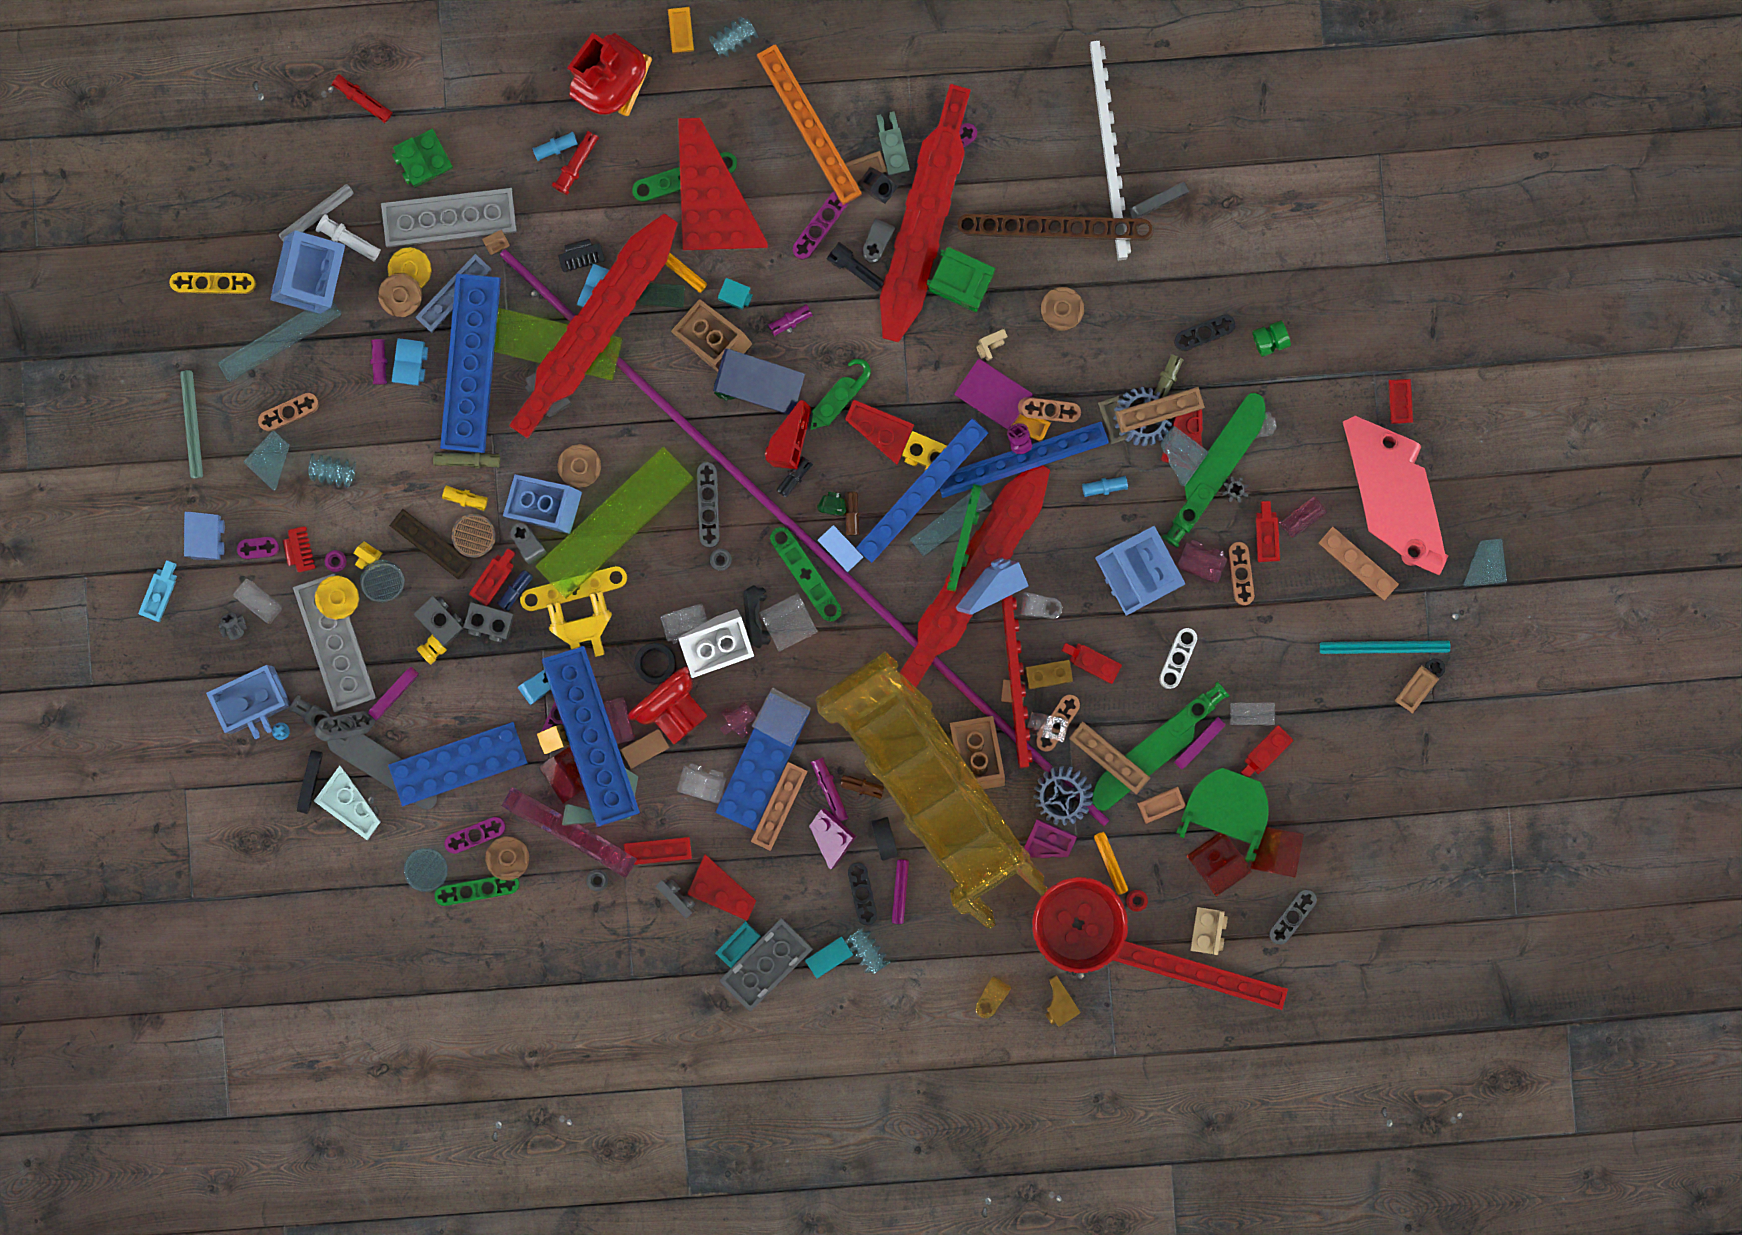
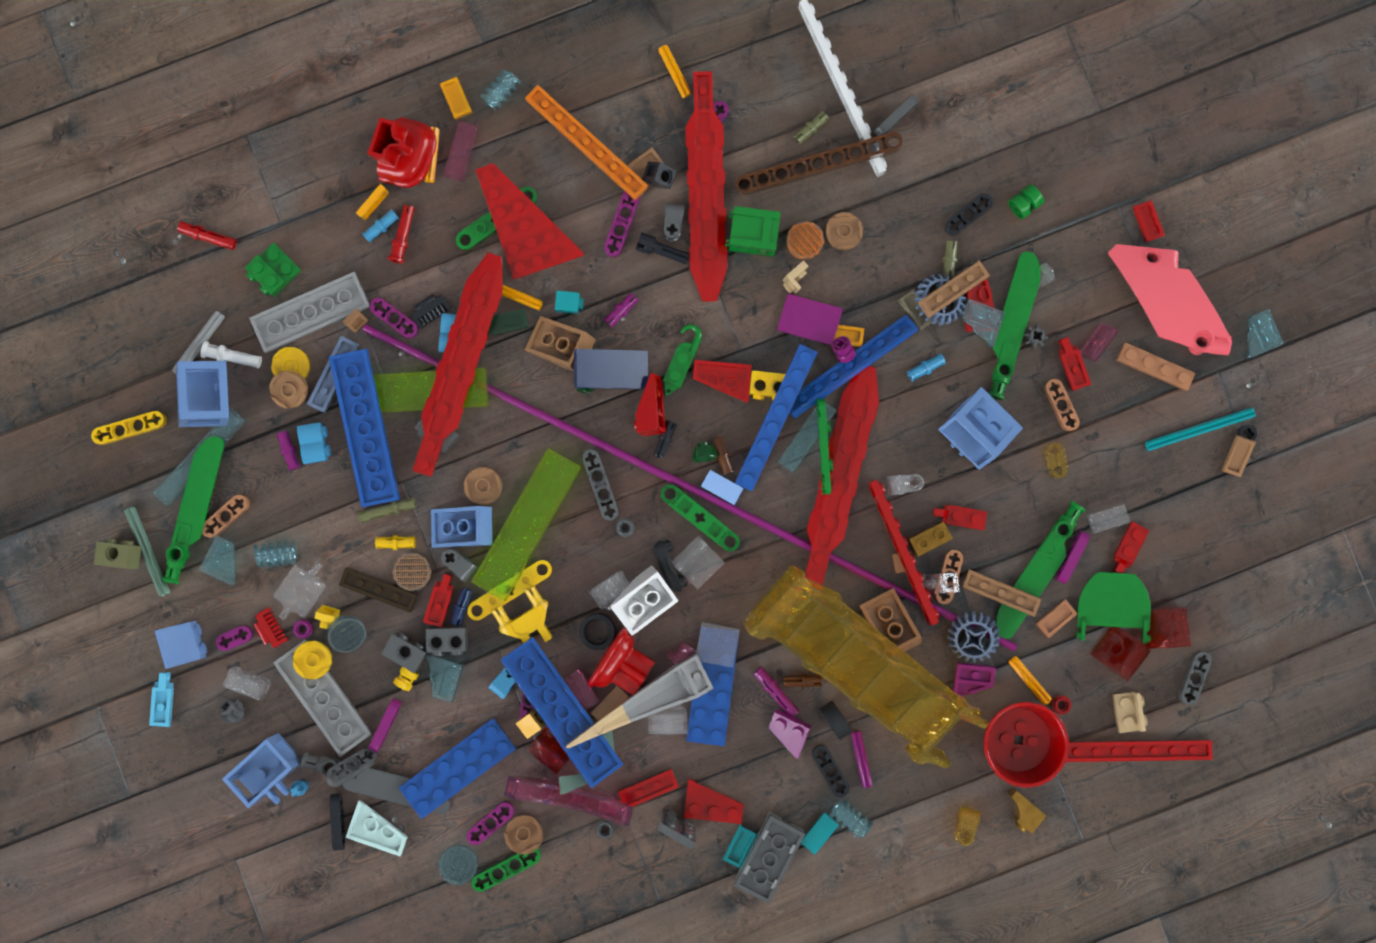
camera: 20 degrees left, 0 degrees up
(171, 423) = (117, 555): none -> olive brick
(260, 388) = (194, 505): none -> green piece
(345, 519) = (300, 591): none -> clear plate
(473, 662) = (444, 677): none -> clear light blue wing
(524, 242) = (408, 322): none -> magenta beam
(554, 118) = (372, 202): none -> light orange tile
(668, 90) = (460, 151): none -> clear pink plate
(721, 747) = (673, 687): none -> light grey plate
(779, 806) = (738, 719): nougat plate -> none
(892, 146) = (661, 140): sand green hinge -> none
(931, 74) = (674, 71): none -> light orange axle
(993, 585) = (861, 479): medium blue slope -> none
(1016, 305) = (805, 240): none -> tile
(1061, 183) = (811, 127): none -> olive pin
(1065, 405) = (867, 319): nougat beam -> none
(1185, 650) = (1026, 499): white beam -> none
(1201, 561) = (1027, 405): clear pink brick -> none
(1210, 631) = (1061, 459): none -> clear yellow beam

